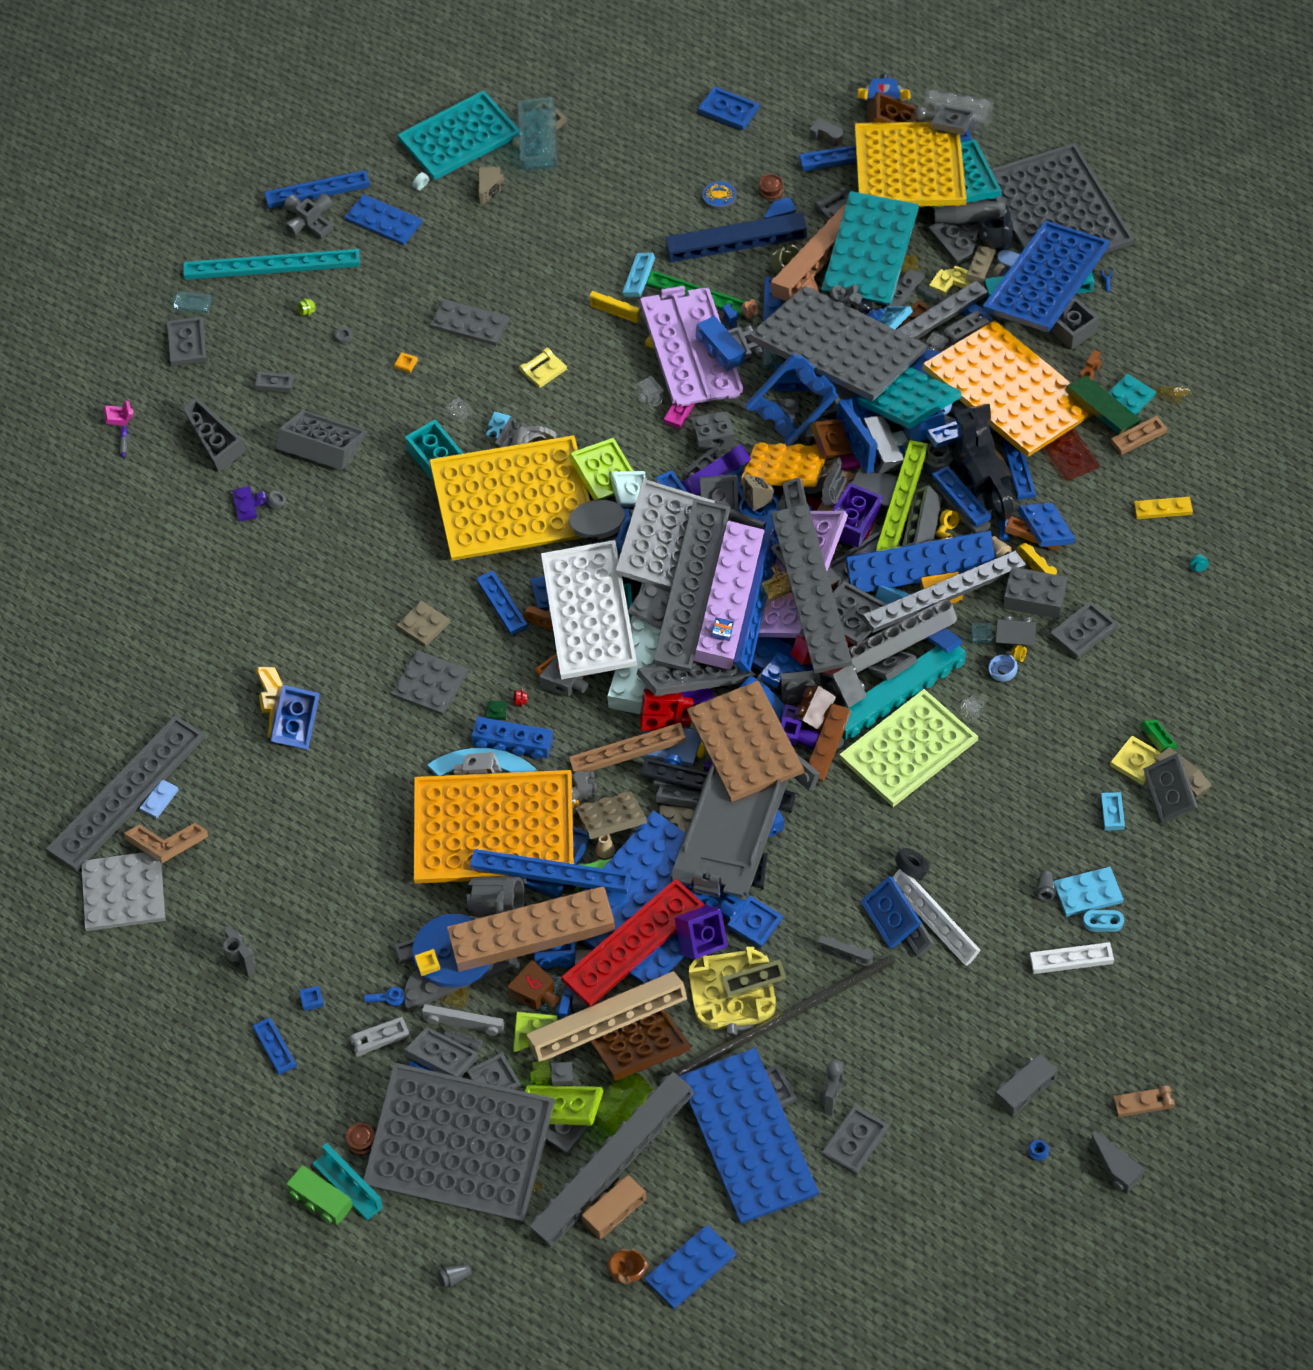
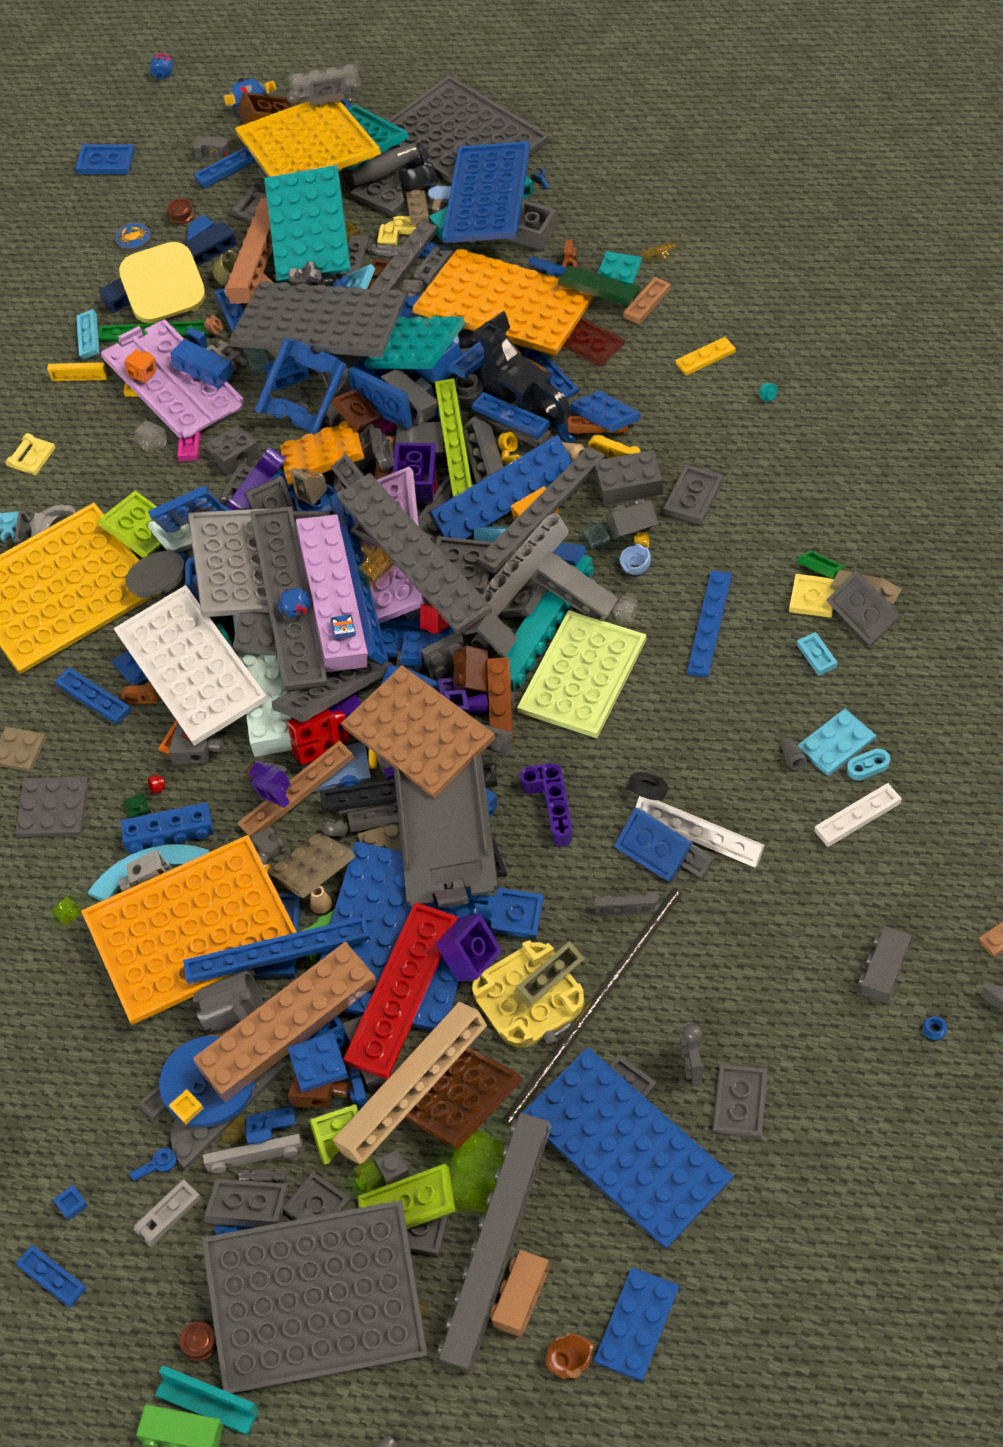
camera: 20 degrees left, 0 degrees up
(404, 772) = (66, 911): none -> clear neon green plate
(477, 1001) = (260, 1125): none -> blue plate
(541, 970) = (317, 1062): none -> blue plate
(609, 733) = (270, 782): none -> dark purple plate
(633, 474) = (174, 513): none -> blue plate
(644, 794) = (334, 829): none -> dark grey plate
(667, 325) = (140, 365): none -> orange brick
(693, 592) = (294, 602): none -> blue head
(722, 251) = (162, 282): none -> light yellow tile
(819, 33) = (161, 66): none -> blue head
(829, 848) = (551, 786): none -> dark purple beam
(935, 671) = (574, 587): none -> brick
(1037, 748) = (709, 624): none -> blue plate
(1066, 367) = (543, 265): none -> blue plate

